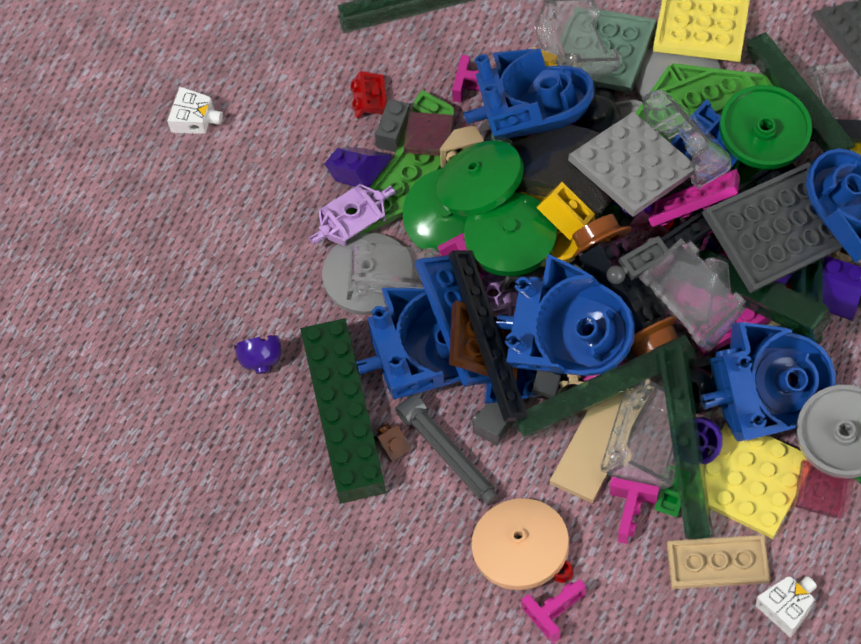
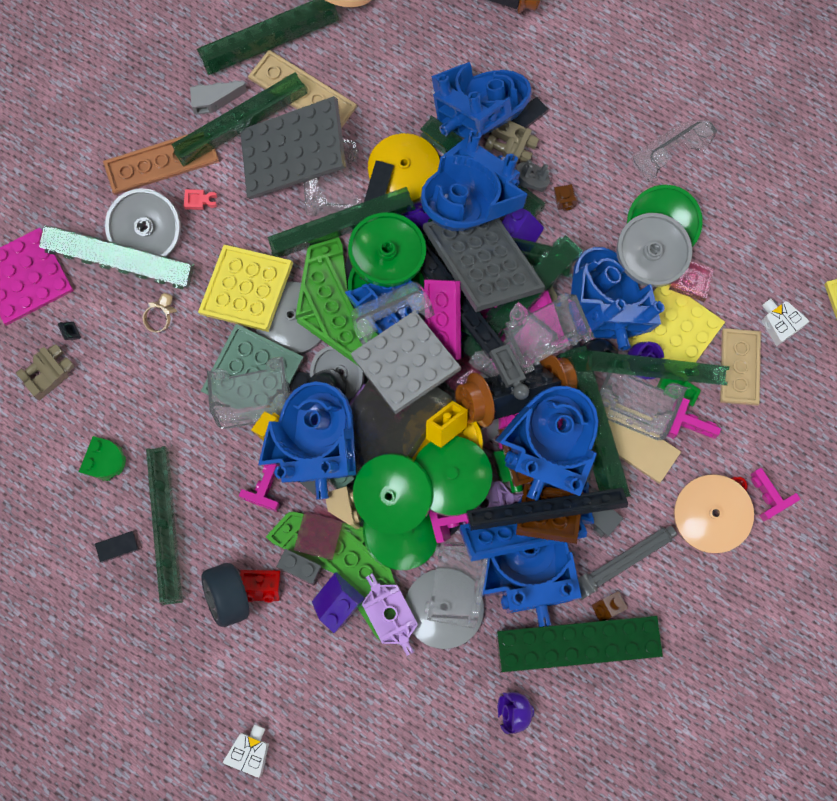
camera: 90 degrees left, 15 degrees up
(350, 53) = (225, 594): none -> black wheel

